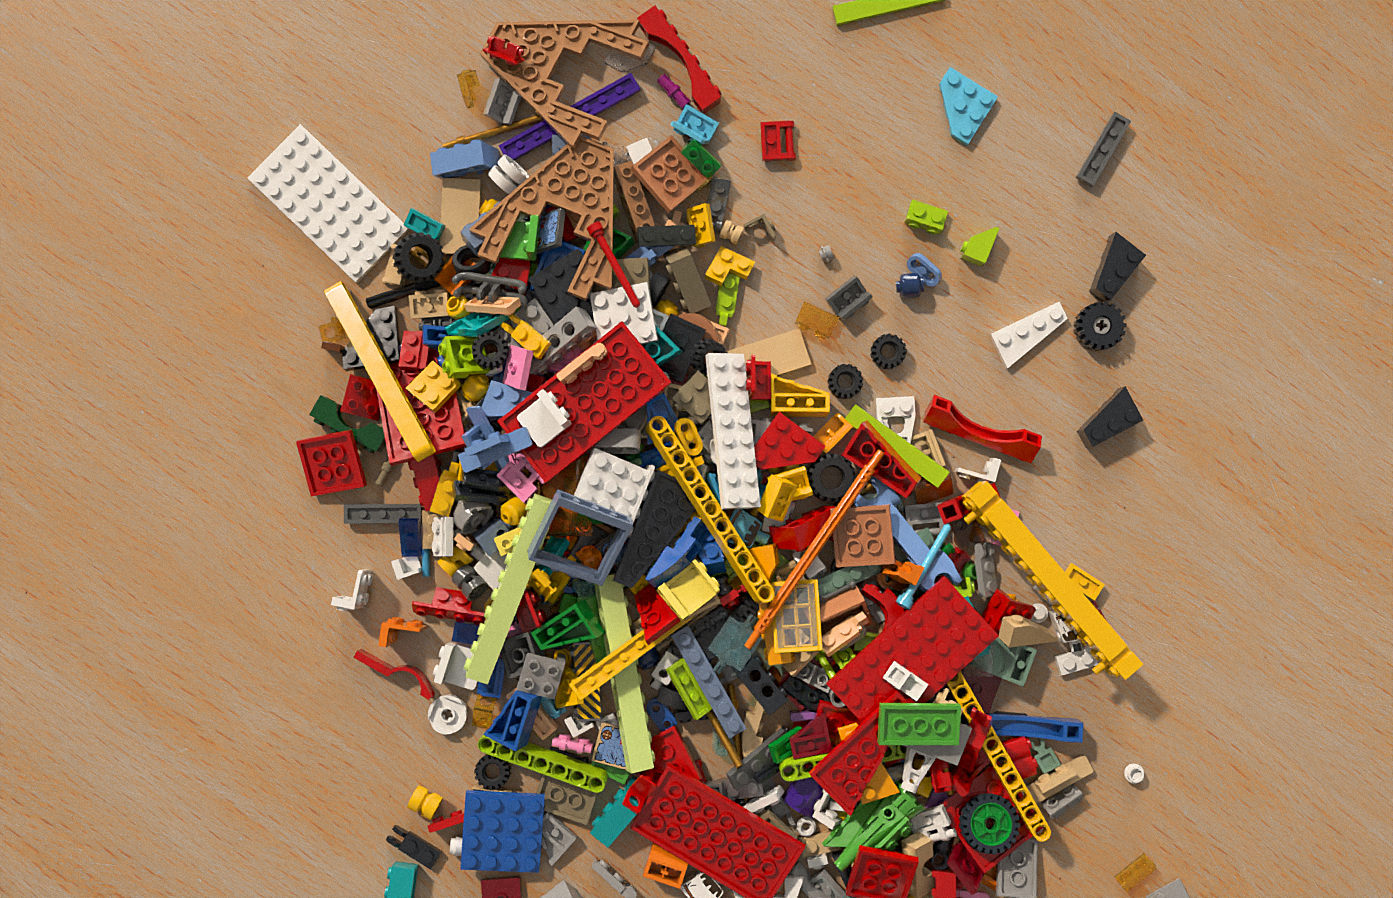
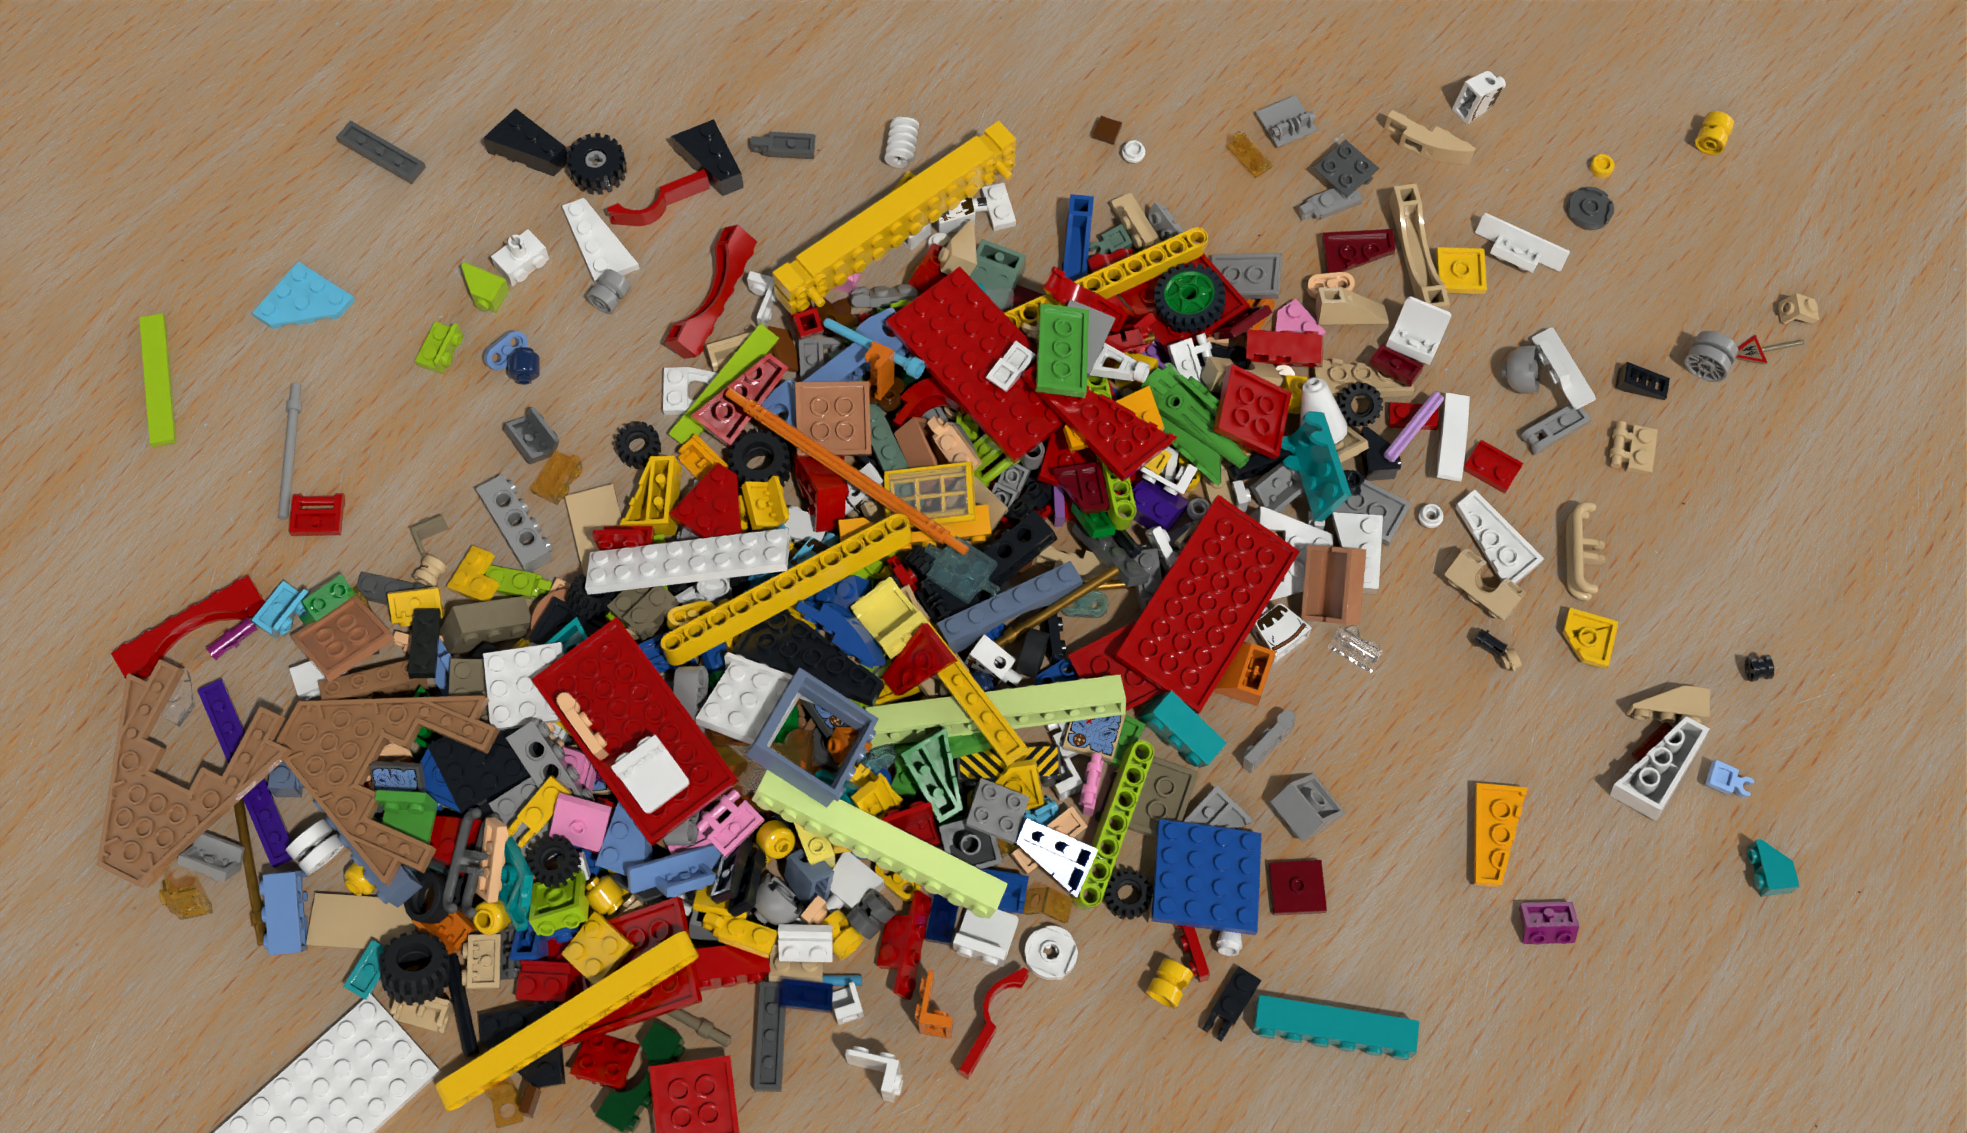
camera: 90 degrees left, 20 degrees down
(494, 448) = (687, 843): medium blue bracket -> none
(497, 50) = (138, 854): red hinge -> none
(596, 231) = (408, 713): red piece -> none
(640, 790) = (1148, 691): red bracket -> none
(688, 689) = (1018, 626): lime plate -> none
(777, 498) = (778, 512): yellow hinge -> none
(796, 272) = (529, 556): none -> light grey brick
(826, 254) = (472, 461): light grey plate -> none
(851, 584) = (894, 437): dark grey hinge -> none
(868, 111) = (293, 408): none -> light grey bar
(896, 343) = (602, 382): black tyre -> none
(980, 347) = (608, 291): none -> light grey wheel
(1008, 273) = (520, 257): none -> white brick
(1072, 386) = (668, 195): none -> red piece
(1126, 480) = (785, 145): none -> dark grey hinge
(1133, 577) = (901, 141): none -> white piece
(1155, 751) = (1107, 130): none -> reddish brown tile

